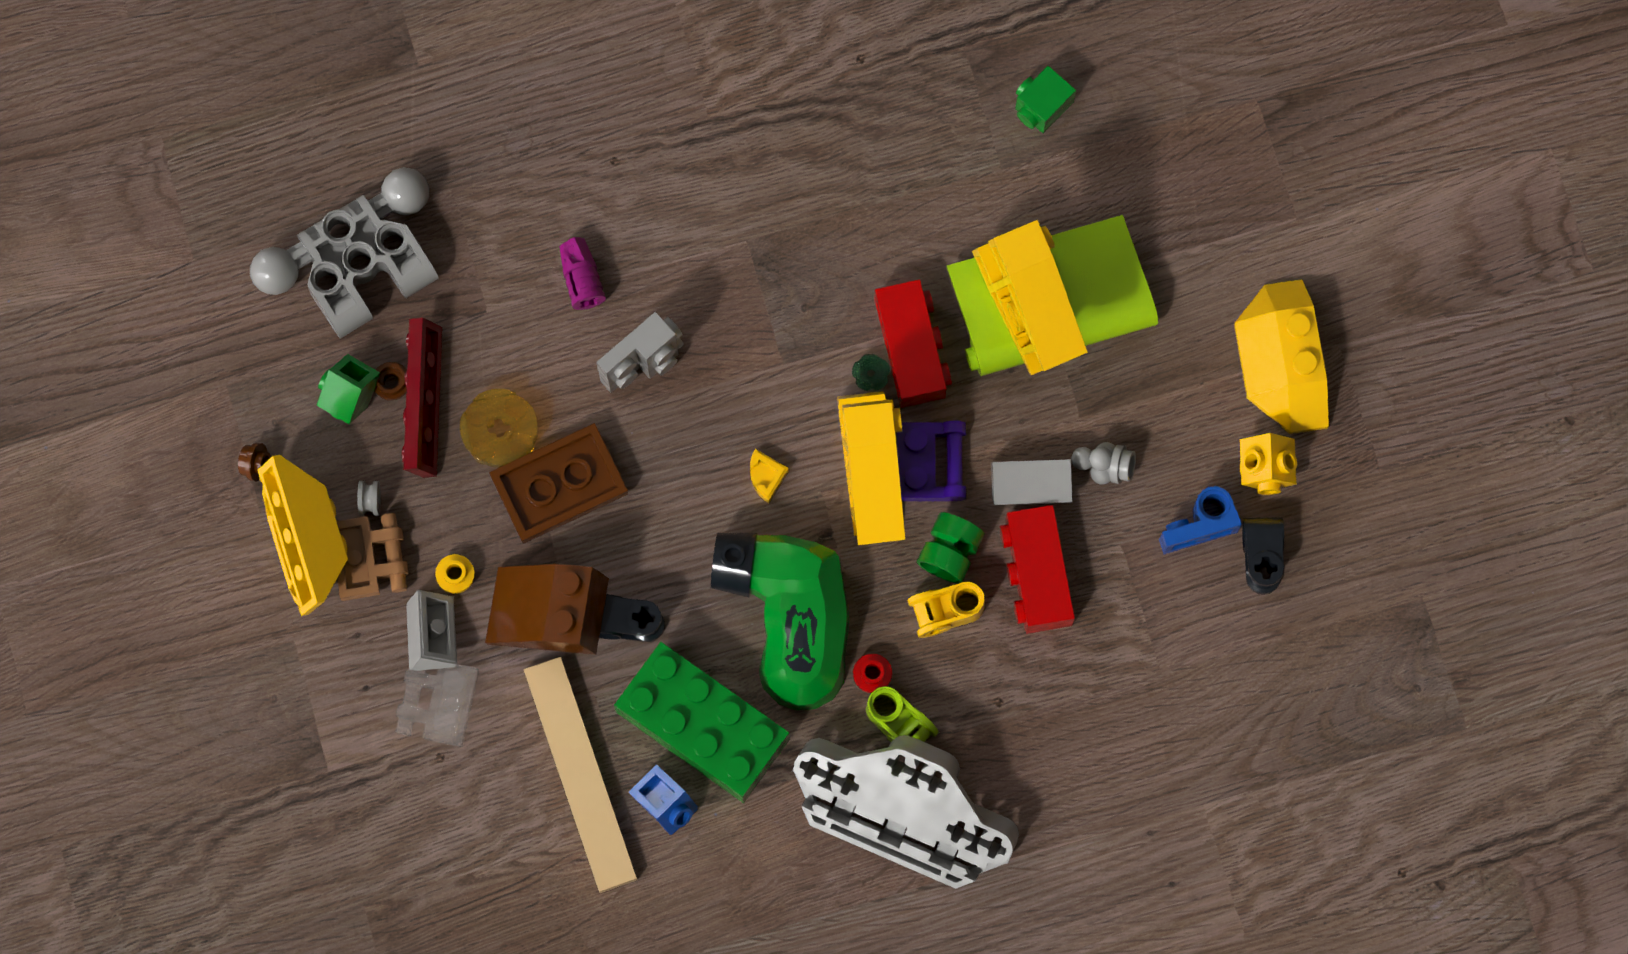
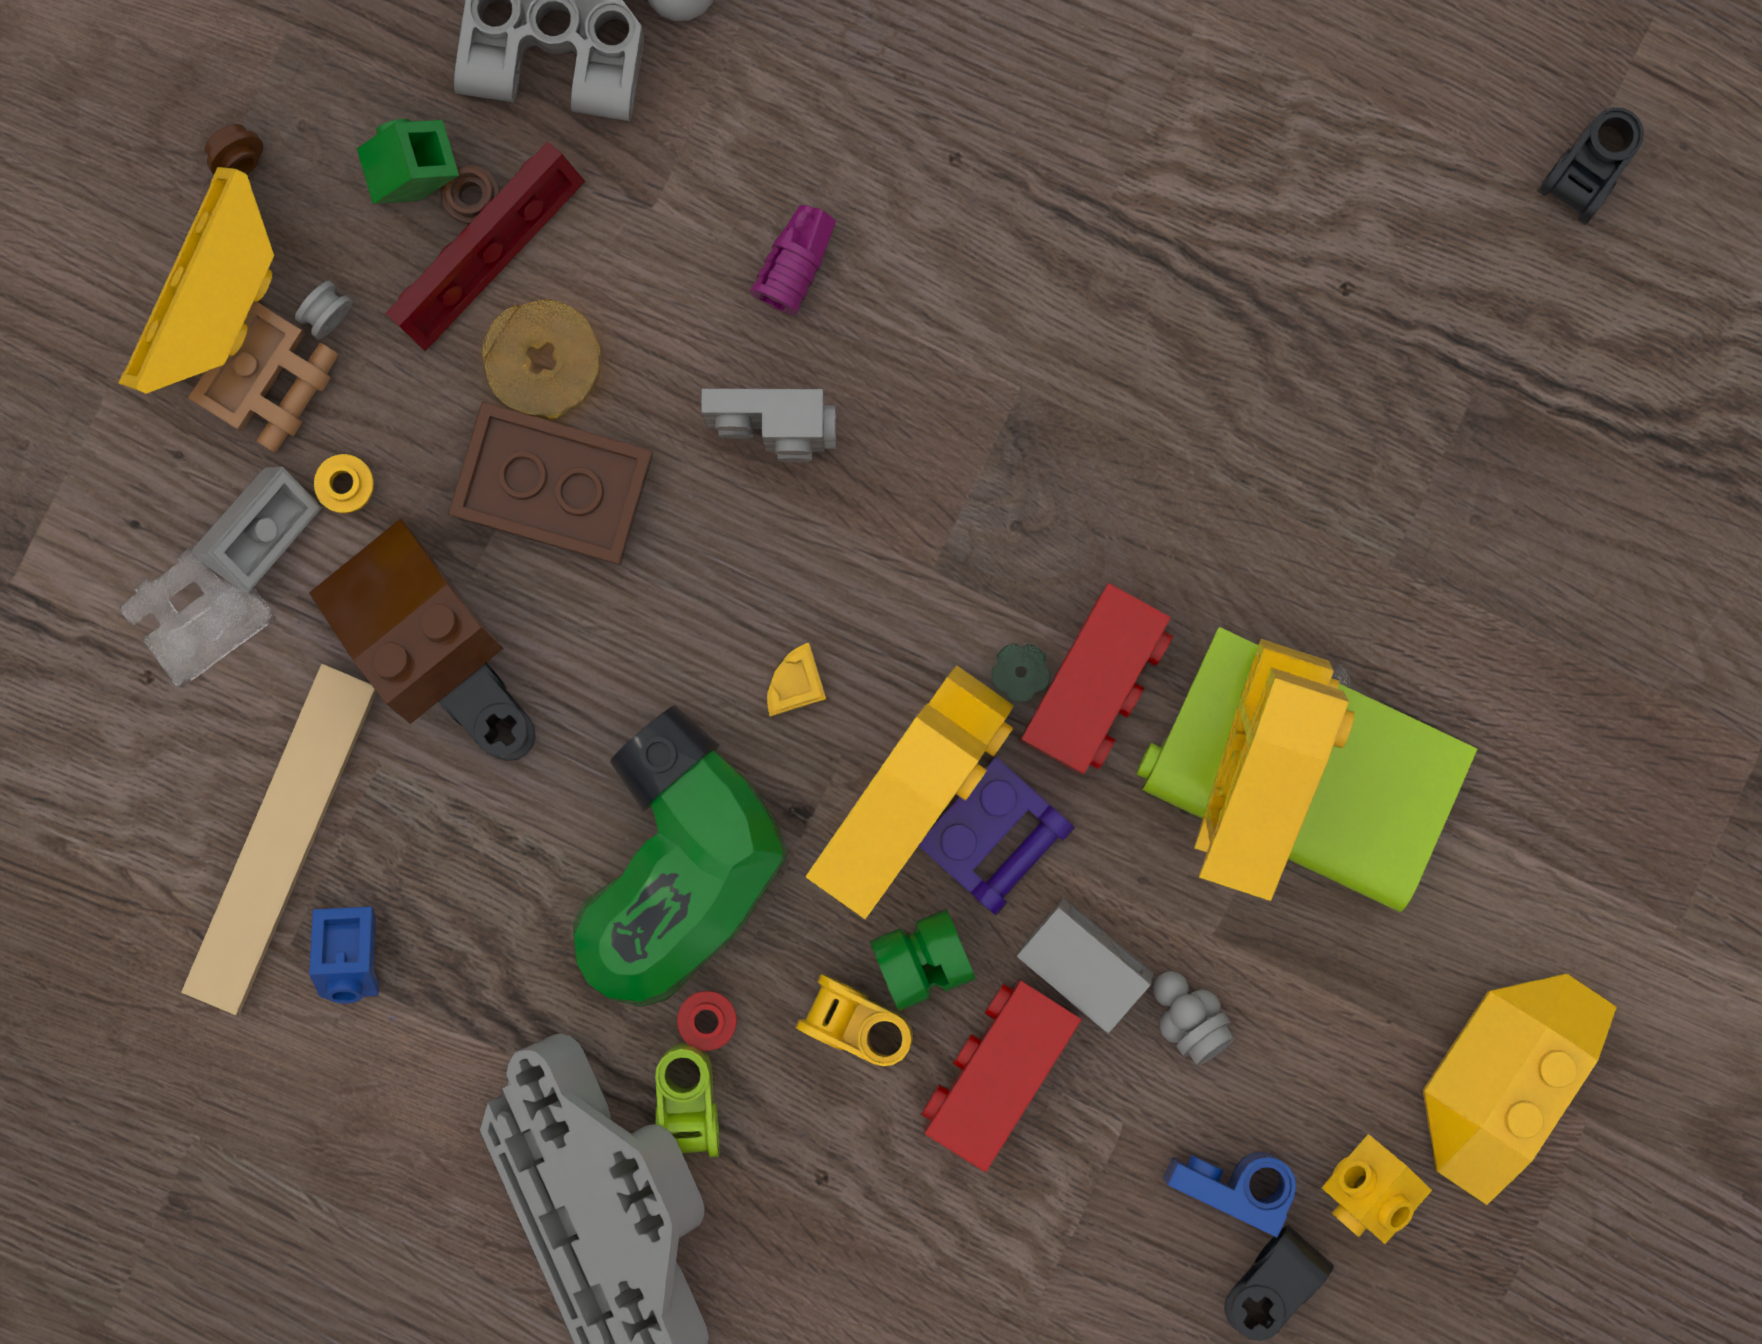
camera: 40 degrees right, 10 degrees up
(702, 722) = (462, 906): green brick -> none
(1043, 99) = (1512, 528): green brick -> none

